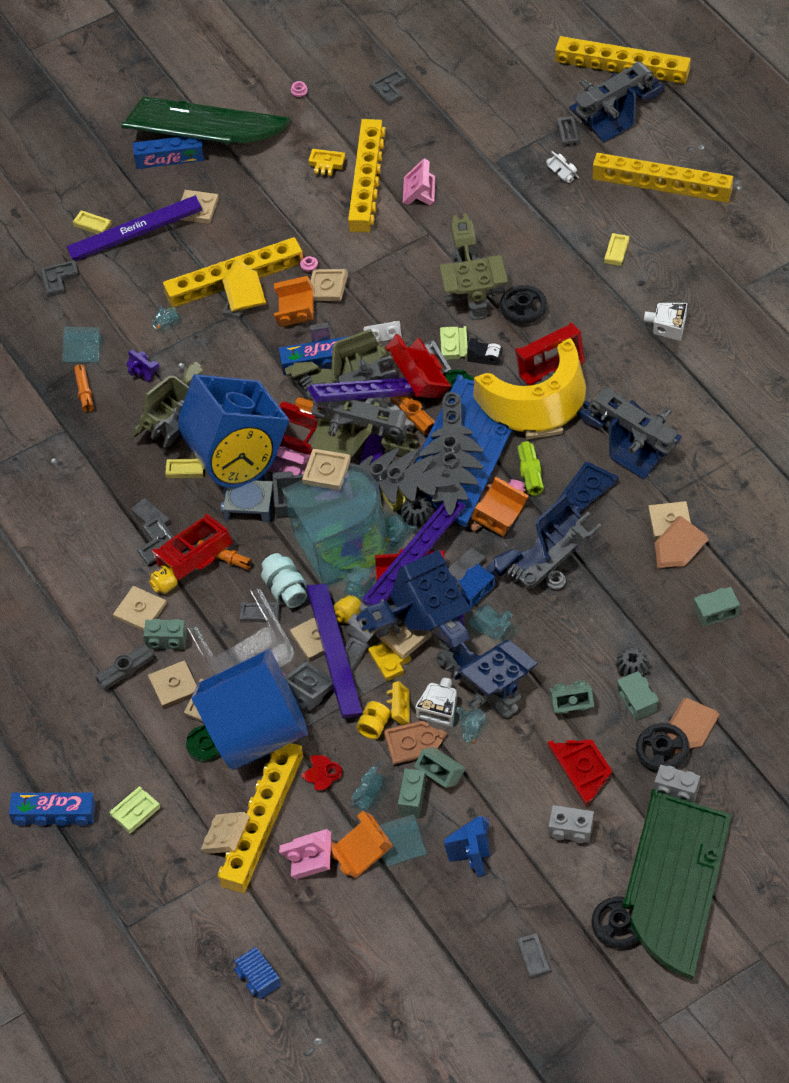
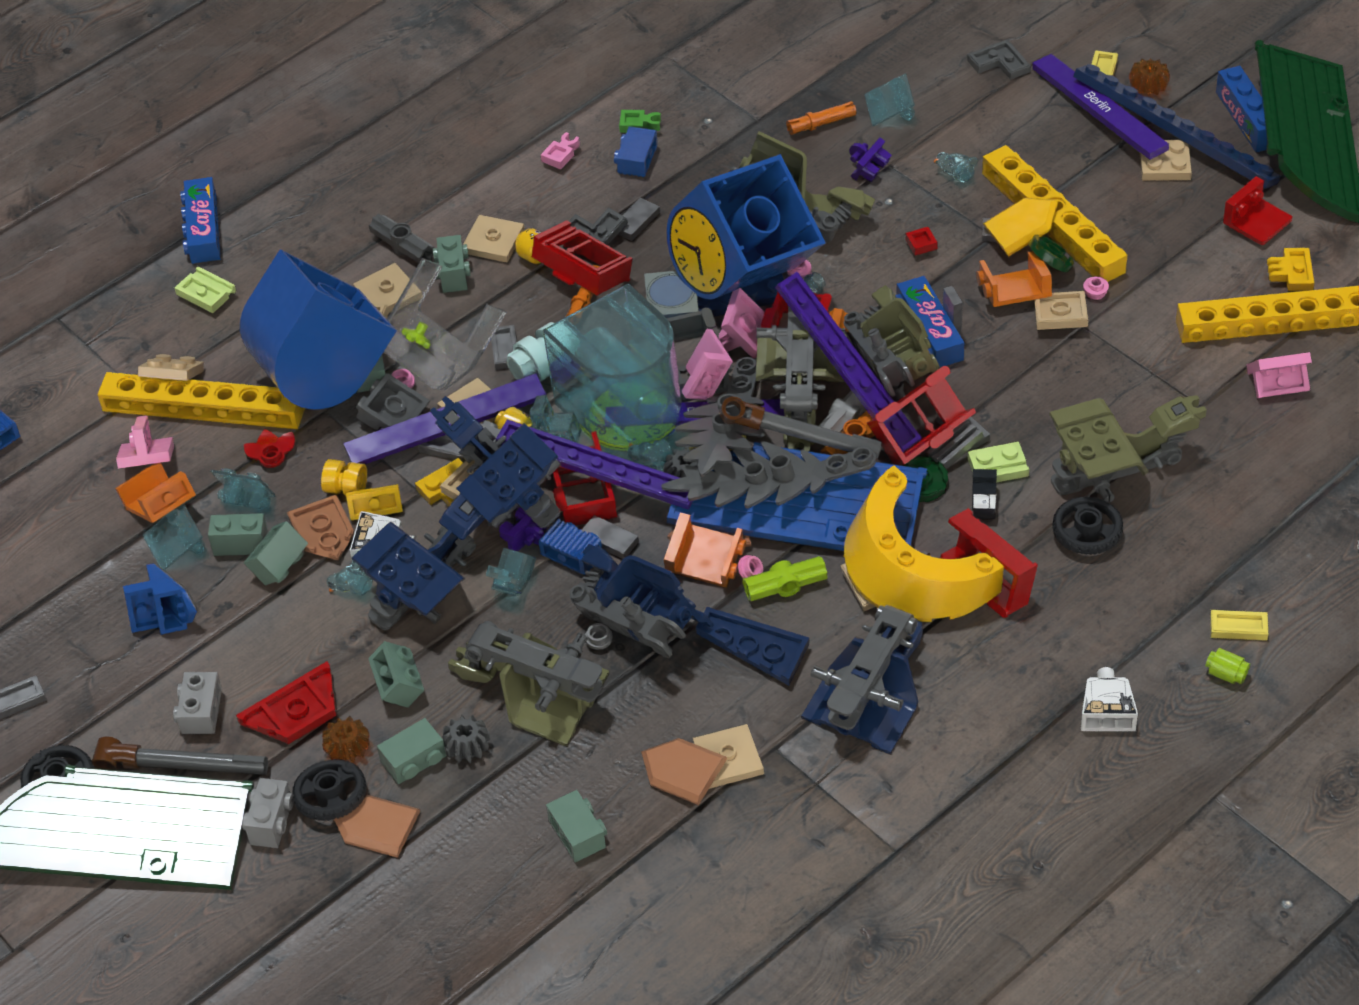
camera: 80 degrees right, 5 degrees down
(43, 502) = (638, 119): none -> bright green plate
(61, 556) = (560, 153): none -> bright pink plate
(80, 504) = (636, 151): none -> blue brick
(114, 197) = (1149, 76): none -> clear orange gear
(169, 192) = (1181, 128): none -> dark blue plate
(234, 349) = (921, 241): none -> red plate
(240, 657) = (417, 335): none -> lime plant
(271, 169) = (1254, 216): none -> red bracket
(277, 277) = (1051, 253): none -> dark green tile
(326, 469) = (656, 312): tan plate -> none
(385, 331) = (994, 382): white hinge -> none
(406, 448) = (756, 417): none -> dark grey piece
(596, 603) = (541, 685): none -> piece
(605, 885) = (113, 755): none -> dark grey piece
(619, 735) = (346, 739): none -> clear orange gear
(651, 258) = (1227, 666): none -> lime brick

